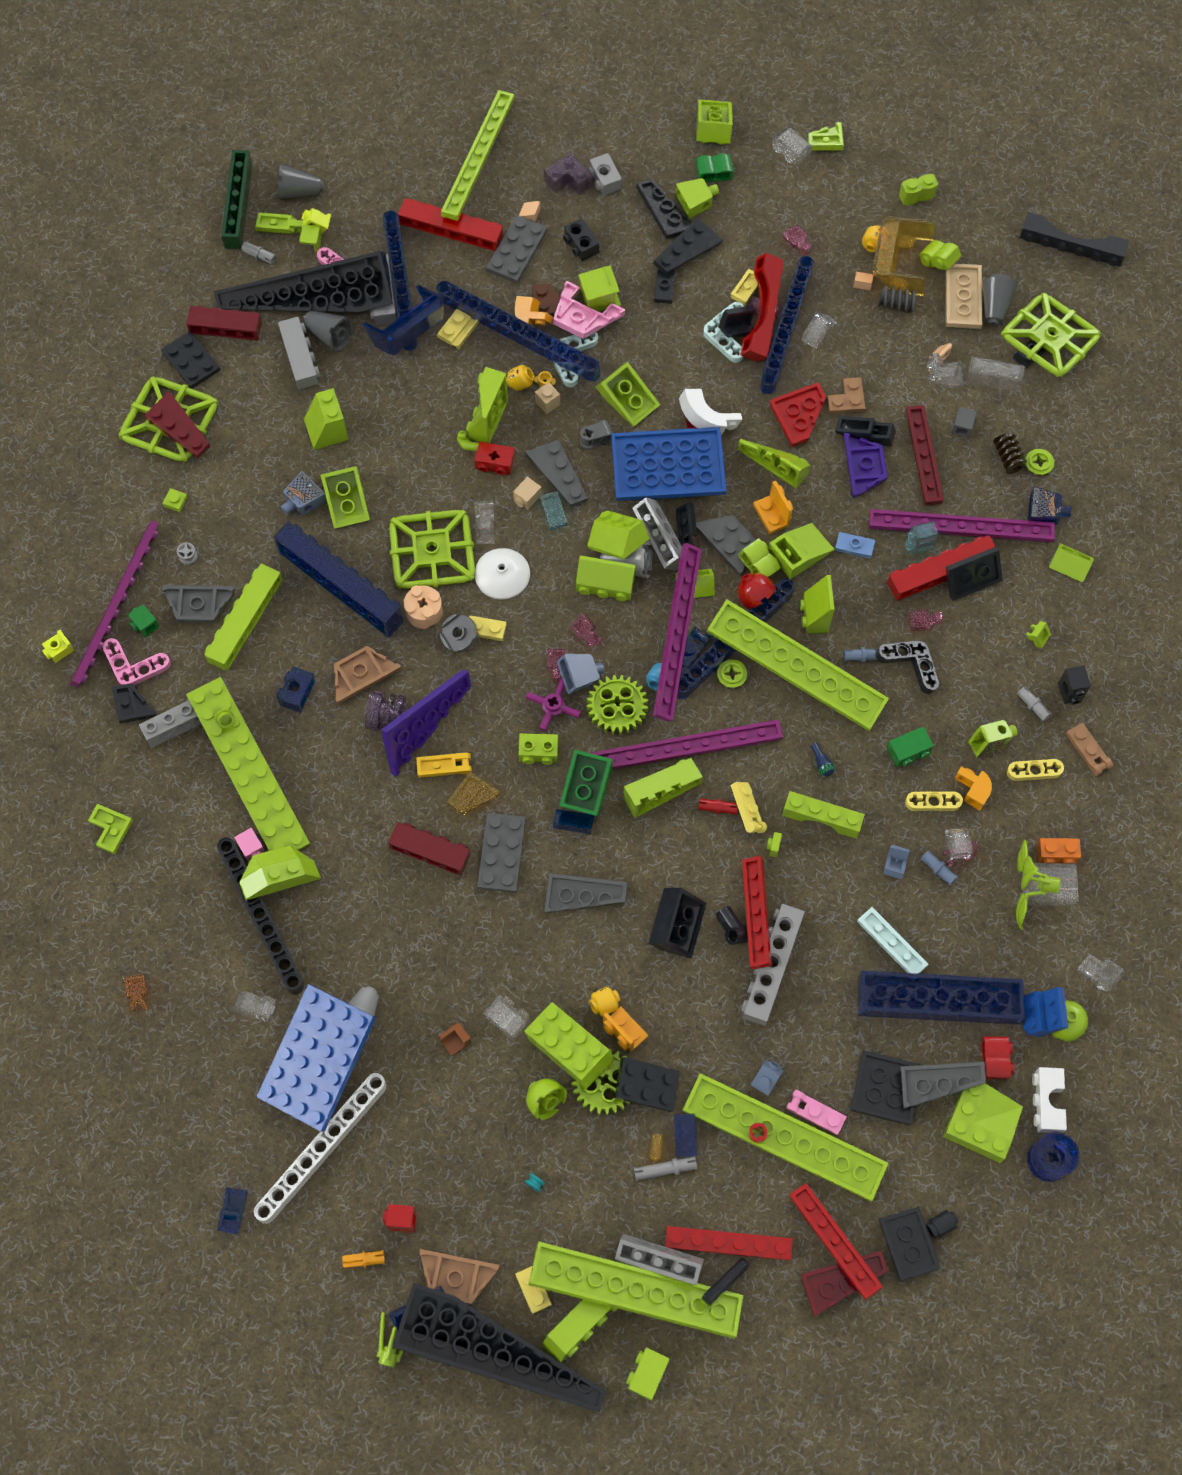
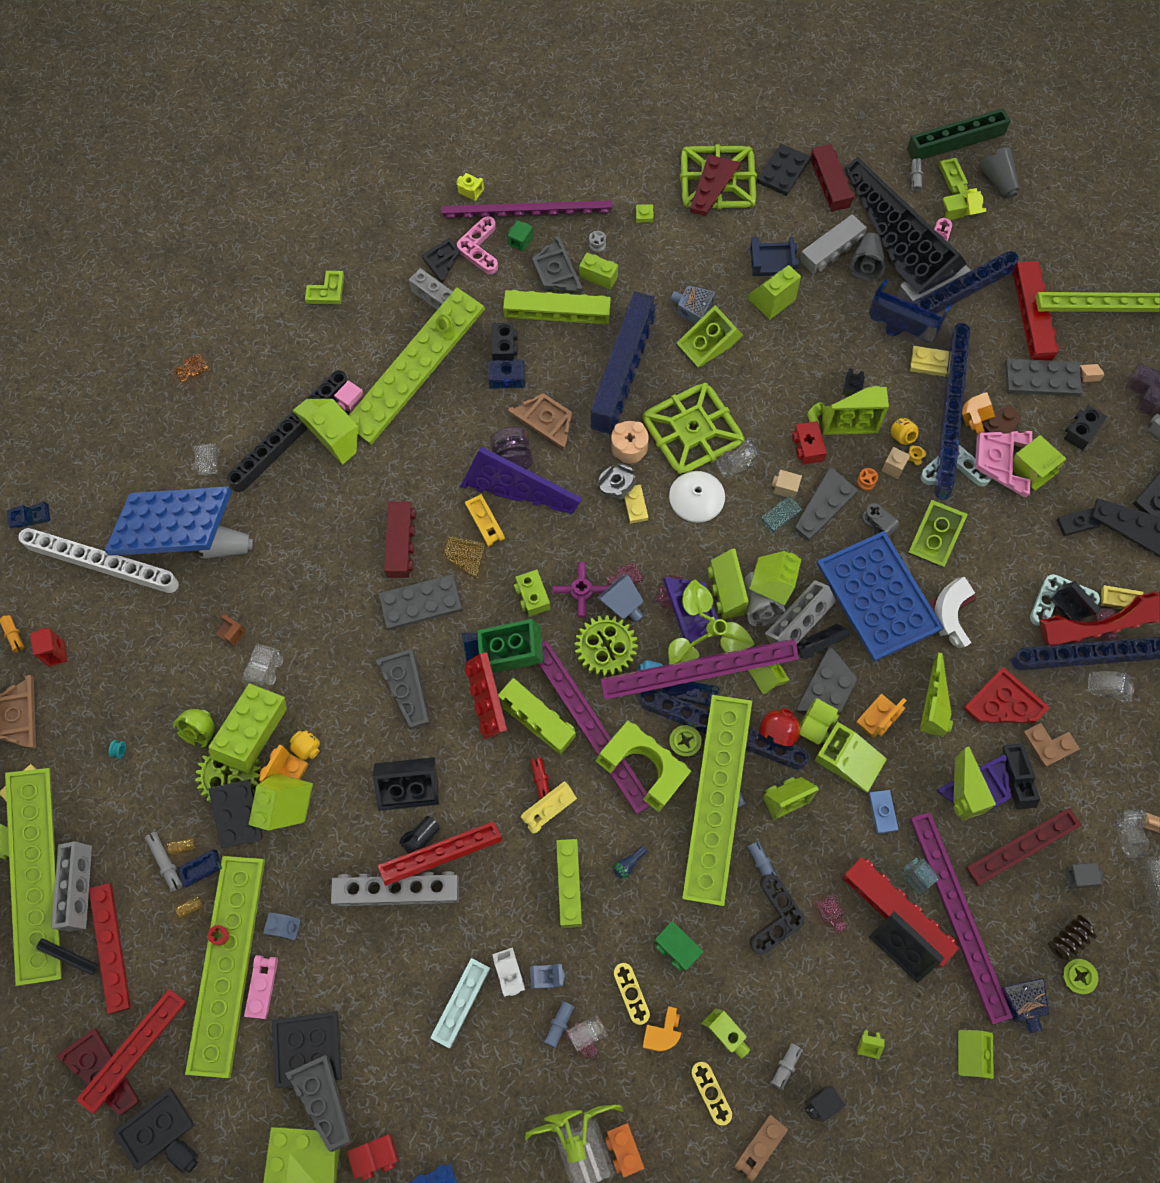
camera: 70 degrees right, 0 degrees up
(223, 564) = (598, 271): none -> lime brick
(257, 683) = (502, 343): none -> black brick
(285, 408) = (772, 257): none -> dark blue panel
(456, 396) = (853, 383): none -> black hinge
(550, 423) = (869, 475): none -> orange wheel
(613, 618) = (691, 626): none -> dark purple wing
(627, 820) = (485, 696): none -> red plate
(650, 598) = (698, 600): none -> lime plant
(655, 1036) = (280, 802): none -> lime slope
(718, 1157) = (188, 907): none -> clear yellow pin
(757, 695) = (633, 741): none -> lime arch
(773, 844) = (520, 846): lime plate -> none
(867, 468) = (970, 789): none -> lime slope
(881, 892) = (508, 972): none -> white brick
(940, 997) = (415, 1074): clear blue brick -> none

